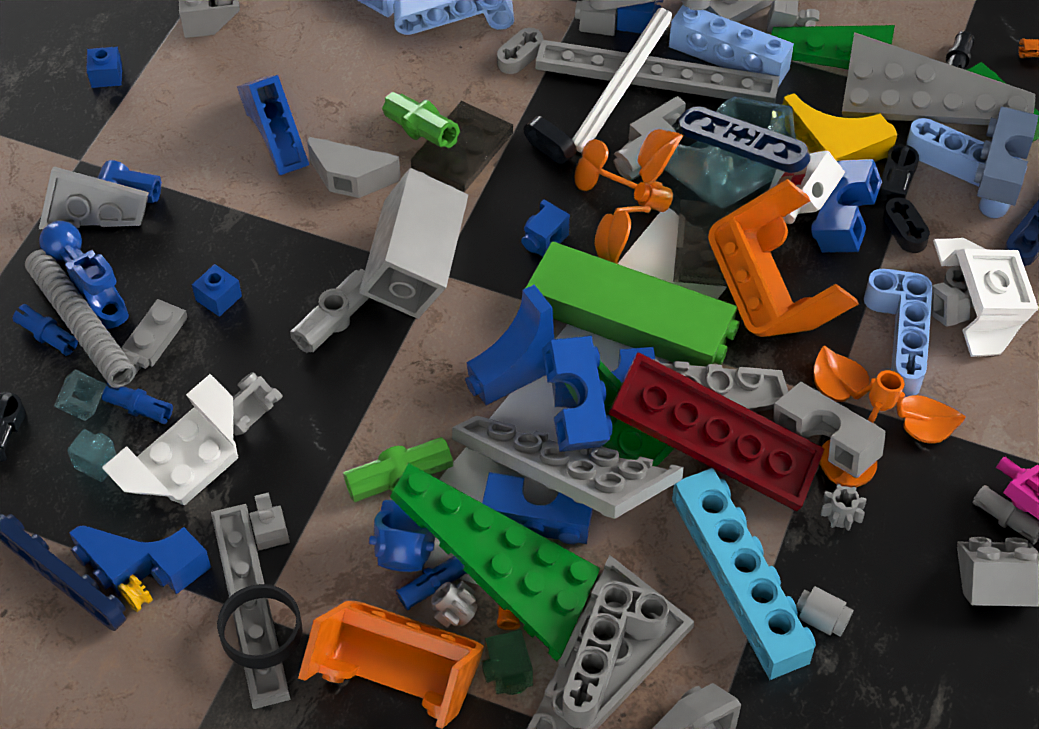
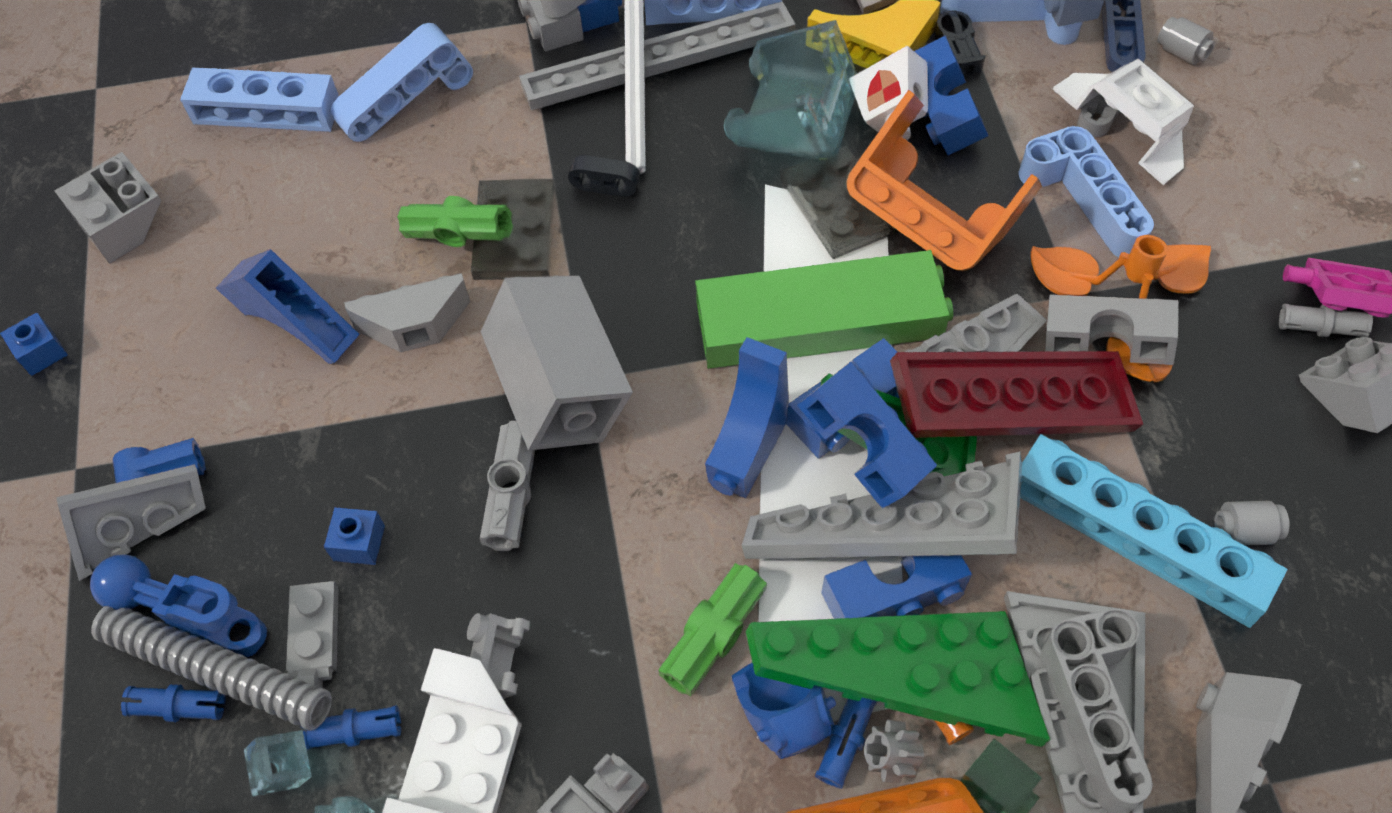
camera: 30 degrees left, 5 degrees up
(516, 48) = (507, 100): light grey beam -> none
(546, 226) = (670, 271): blue brick -> none
(650, 194) = (753, 134): orange plant -> none
(664, 117) = (704, 126): light grey plate -> none
(762, 146) = (832, 74): dark blue piece -> none
(843, 507) = (1181, 401): light grey gear -> none
(902, 226) = (1006, 88): black beam -> none
(950, 304) = (1117, 140): light grey piece -> none

